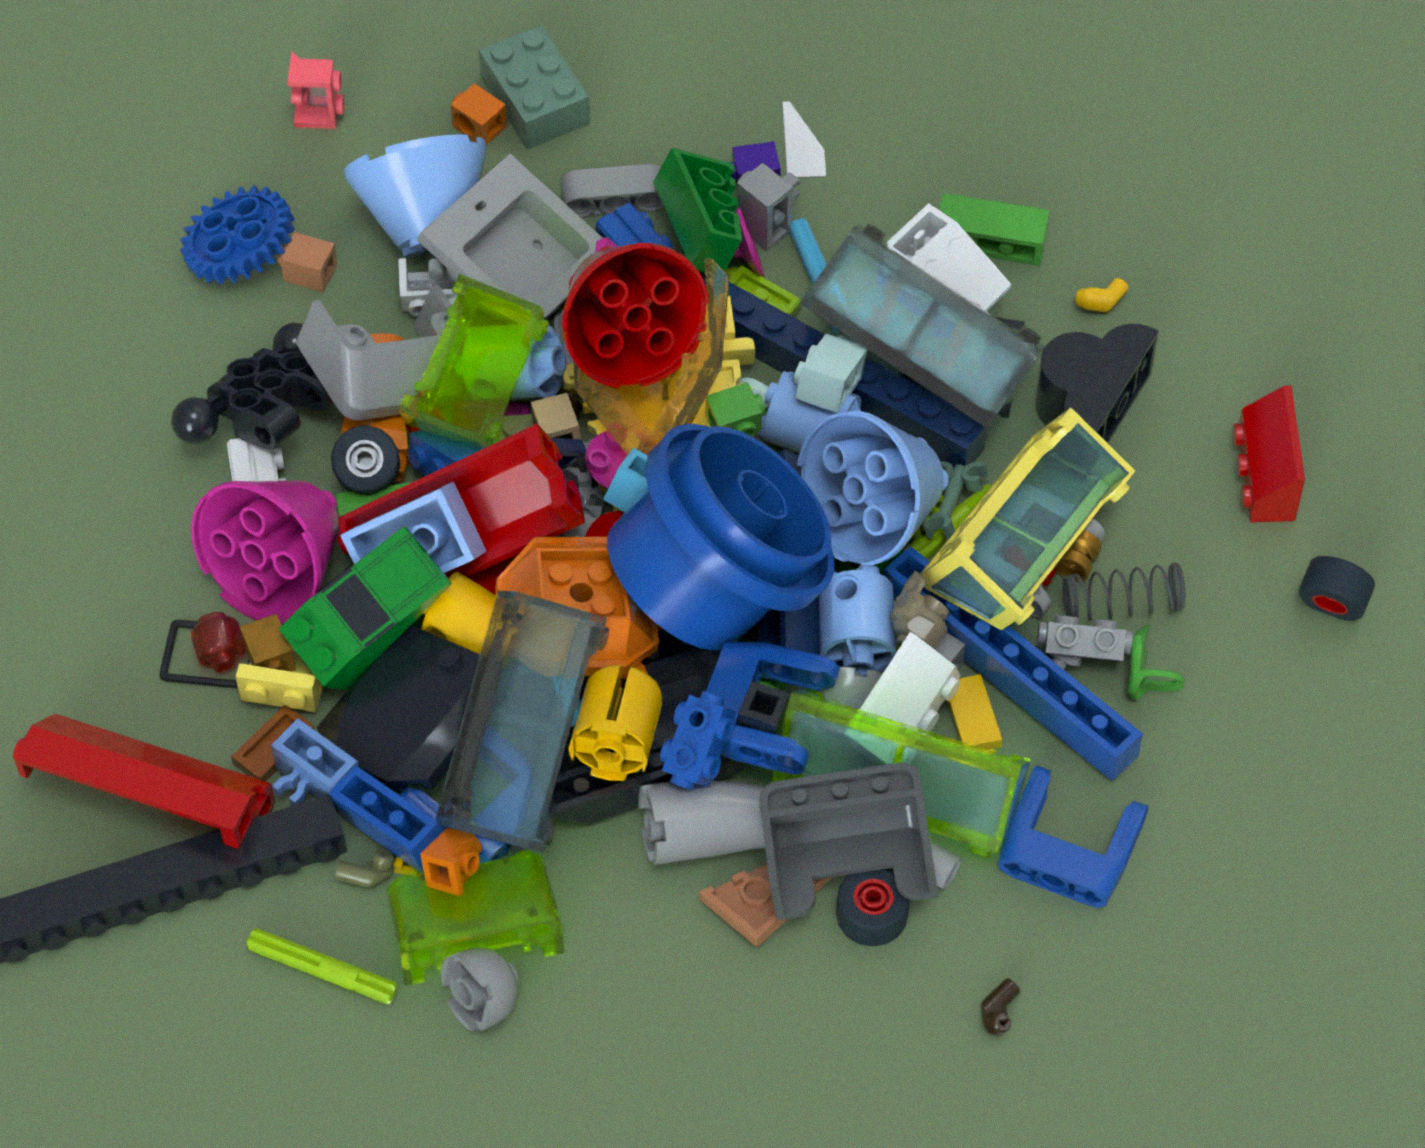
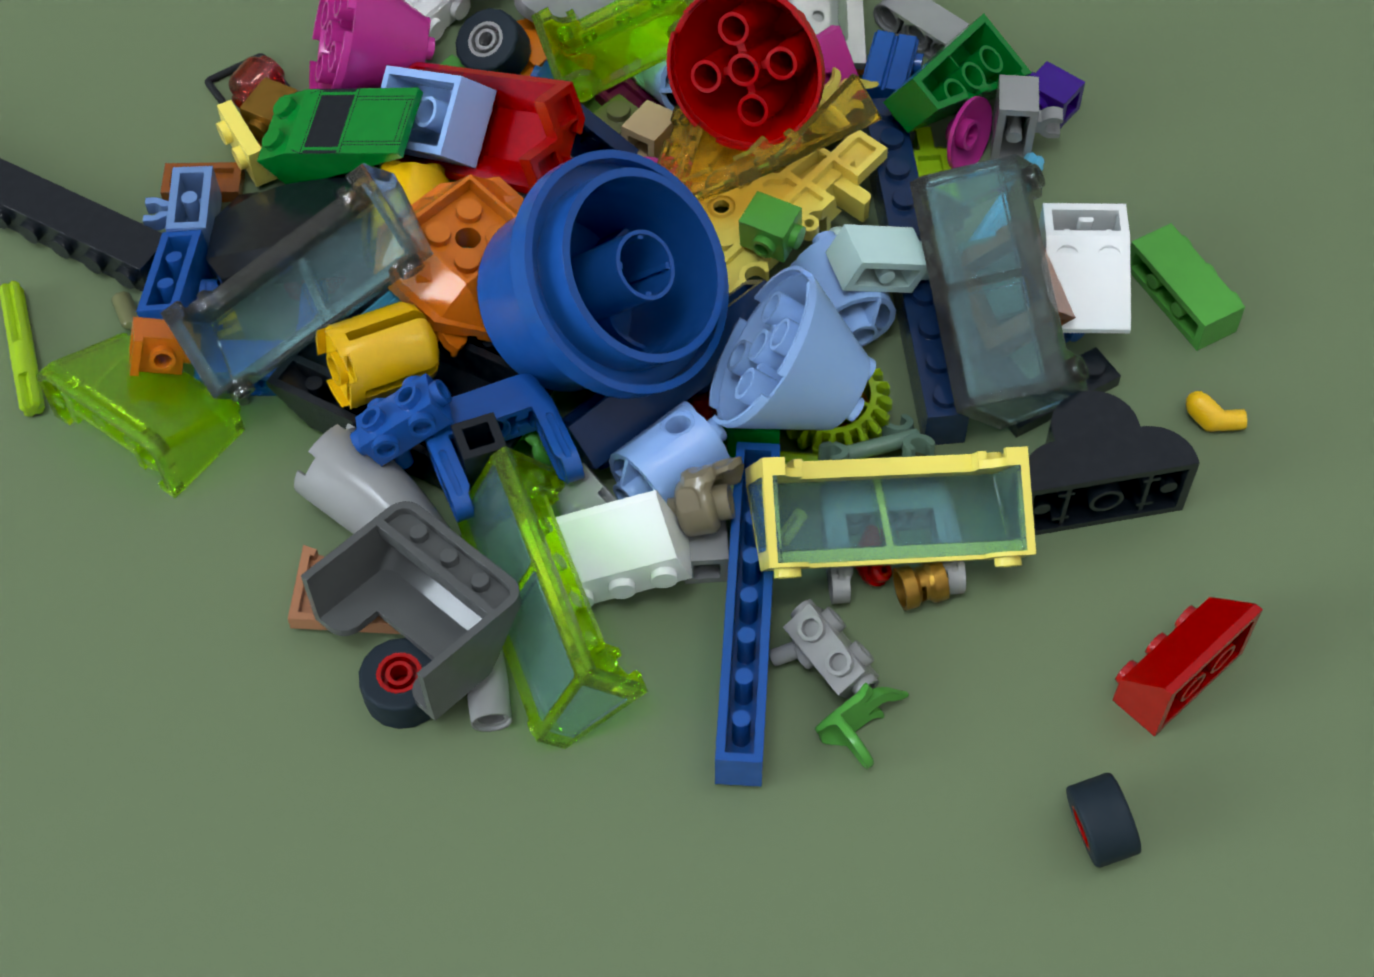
camera: 50 degrees right, 0 degrees up
(145, 774) = (80, 119): red panel -> none
(480, 986) = (75, 458): light grey cylinder -> none
(803, 151) = (1117, 115): white sticker -> none
(974, 714) = (678, 623): yellow tile -> none
(994, 1007) = (383, 858): dark brown arm -> none
(1060, 864) = (578, 803): blue connector -> none
(1071, 600) = (956, 695): dark grey piece -> none

